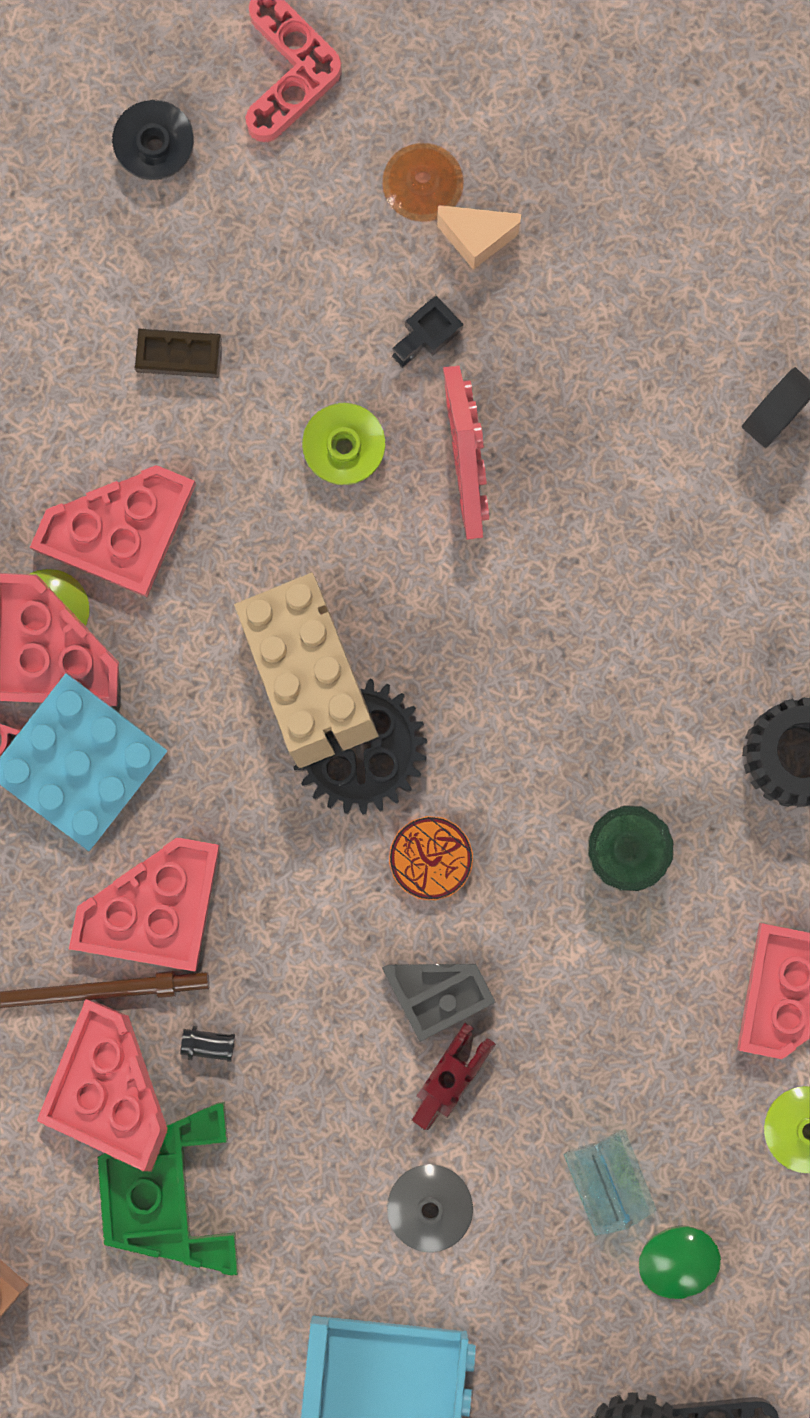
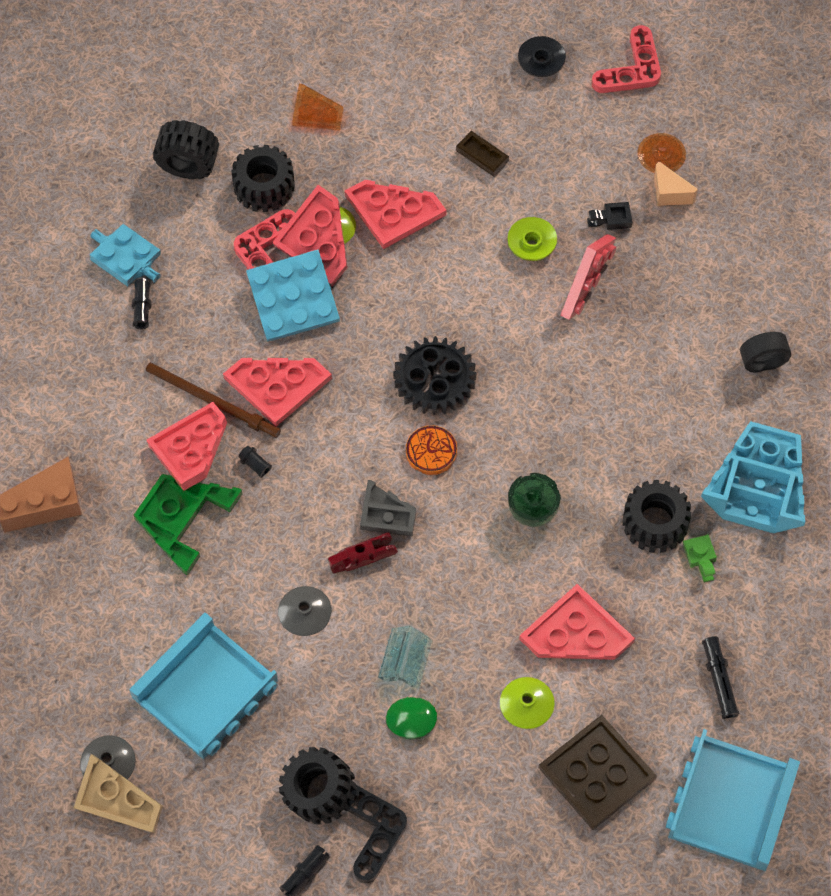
camera: 35 degrees right, 20 degrees down
(305, 670) = (434, 319): tan piece -> none

